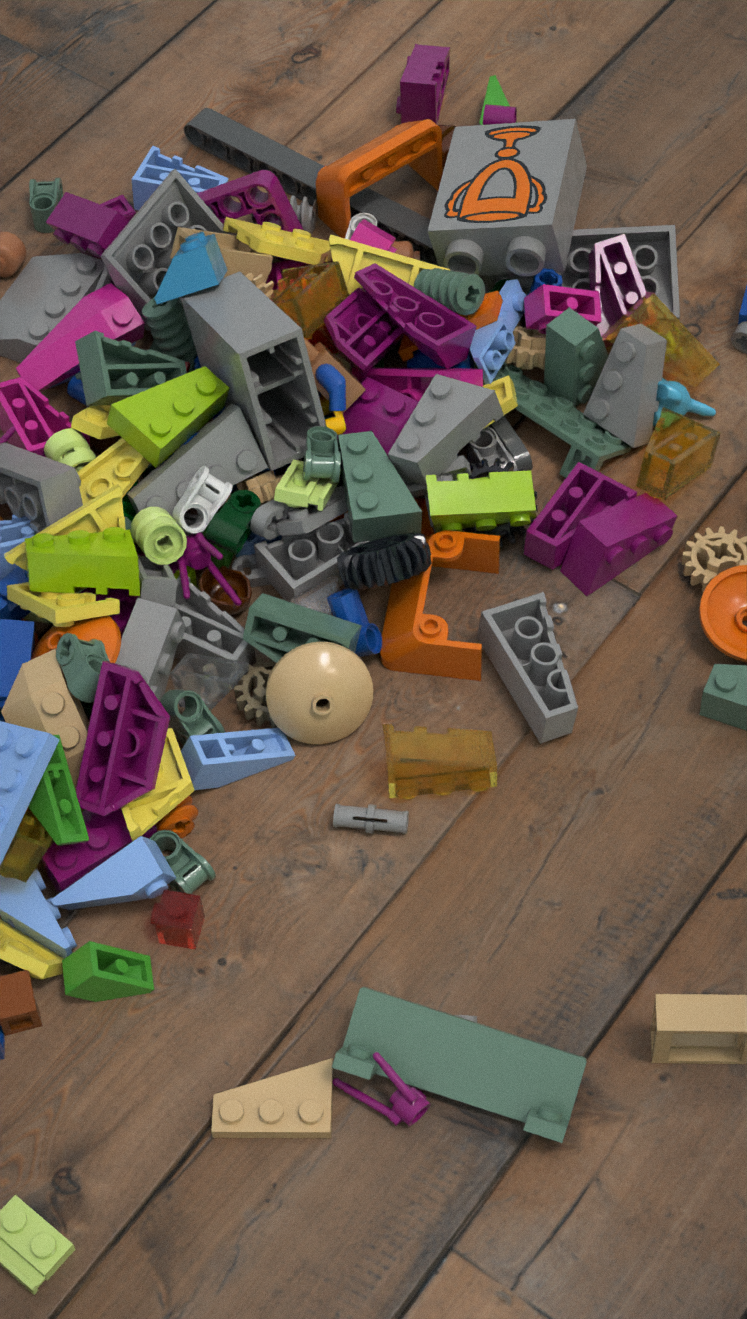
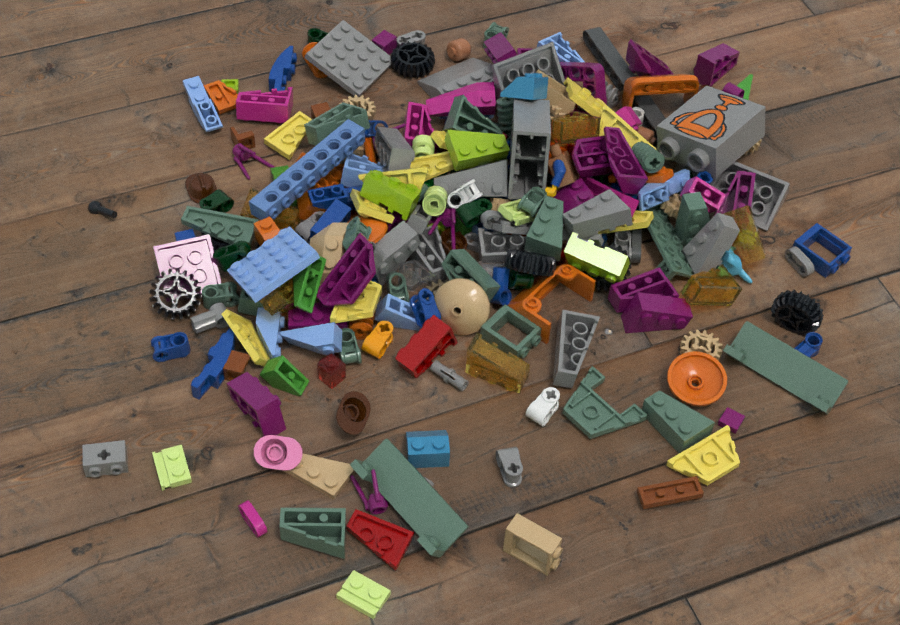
camera: 25 degrees right, 5 degrees down
(97, 1045) = (258, 403): none -> magenta wedge
(194, 1114) = (278, 452): none -> bright pink piece
(219, 824) = (379, 339): none -> light orange piece
(227, 1253) = (252, 518): none -> dark pink beam
(265, 731) = (423, 308): none -> blue piece
(268, 973) = (353, 412): none -> reddish brown piece
(304, 792) = (425, 346): none -> red wedge
(323, 135) = (645, 62): none -> magenta wedge
(347, 1209) = (315, 529): none -> sand green wedge
(382, 598) = (520, 280): none -> dark green piece
(423, 960) = (428, 448): none -> dark azure slope
(424, 667) = (499, 319): none -> sand green window
(454, 1157) = (380, 536): none -> red wing
(492, 1271) = (363, 594): none -> yellowish green plate
(555, 789) = (544, 406): none -> white piece
(570, 916) = (510, 466): none -> light grey piece
(634, 756) = (594, 414): none -> sand green wing

